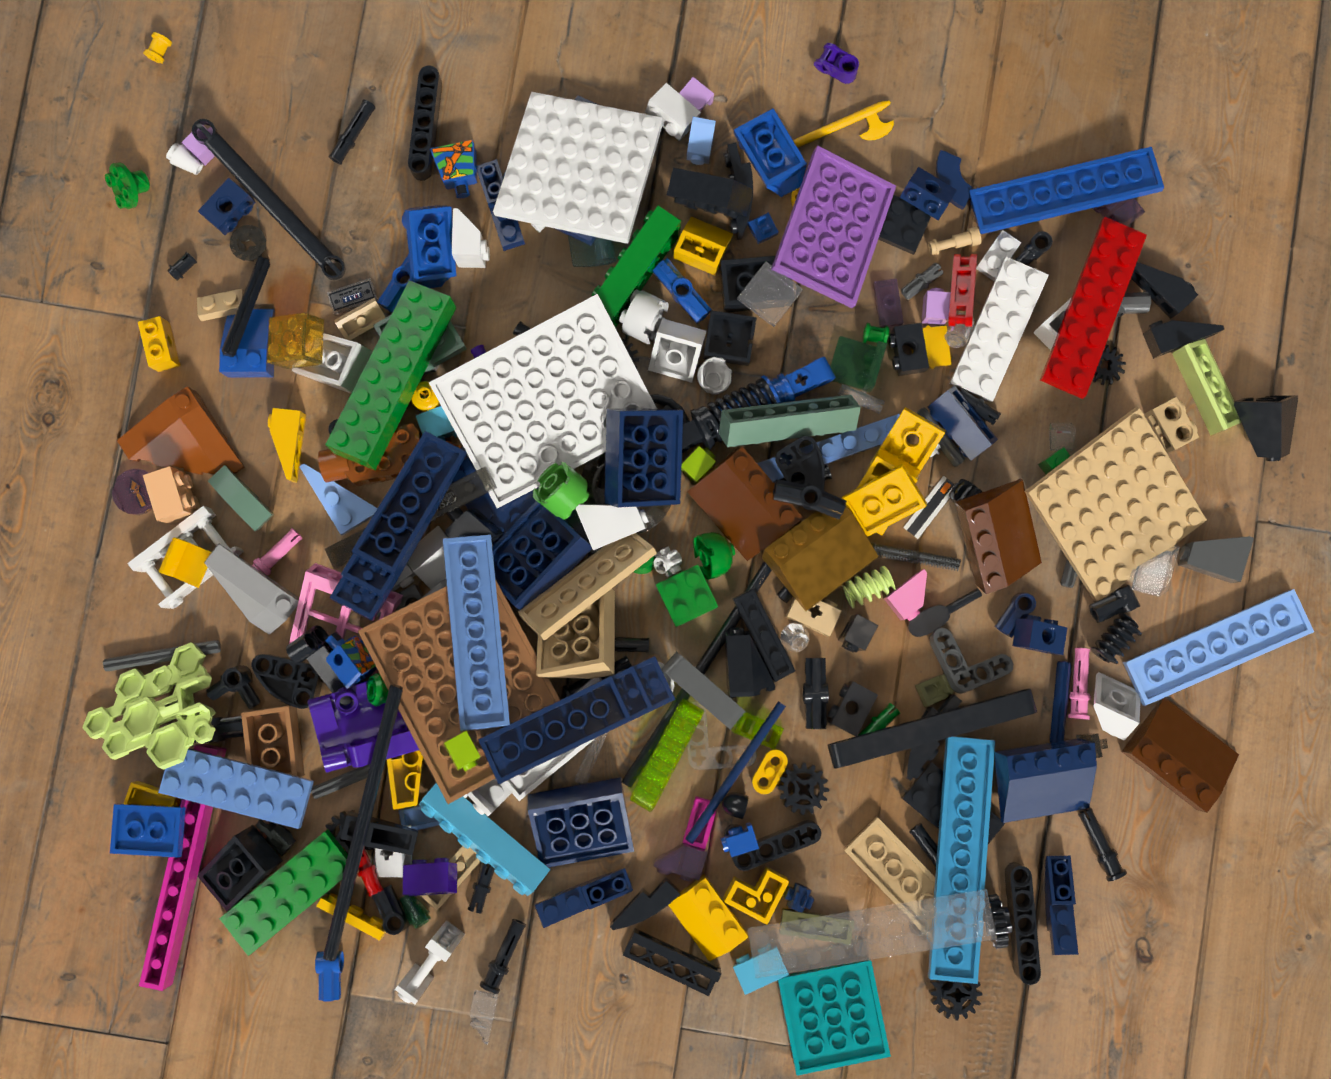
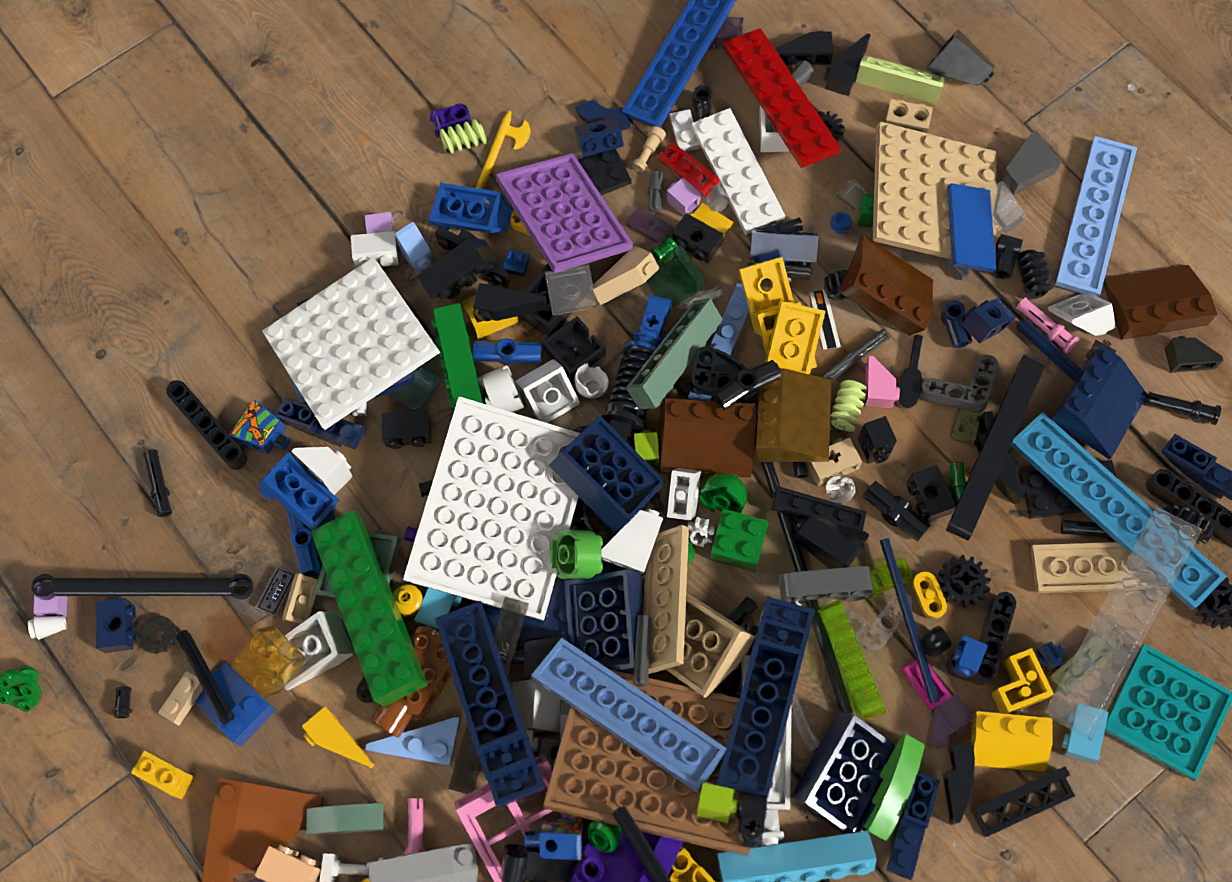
camera: 40 degrees left, 15 degrees down
(476, 783) = (752, 816): none -> black piece
(532, 600) = (642, 650): none -> dark grey axle
(552, 273) = (406, 429): none -> black brick
(594, 865) = (896, 787): none -> bright green slope
(684, 525) = (683, 493): none -> white brick
(710, 253) = (504, 303): none -> black slope
(825, 322) = (625, 275): none -> tan slope
(832, 87) = (462, 136): none -> yellowish green piece
(1027, 450) = (841, 222): none -> blue plate
(1111, 558) = (971, 227): none -> blue tile
(1153, 816) = (1191, 355): none -> pearl dark grey slope

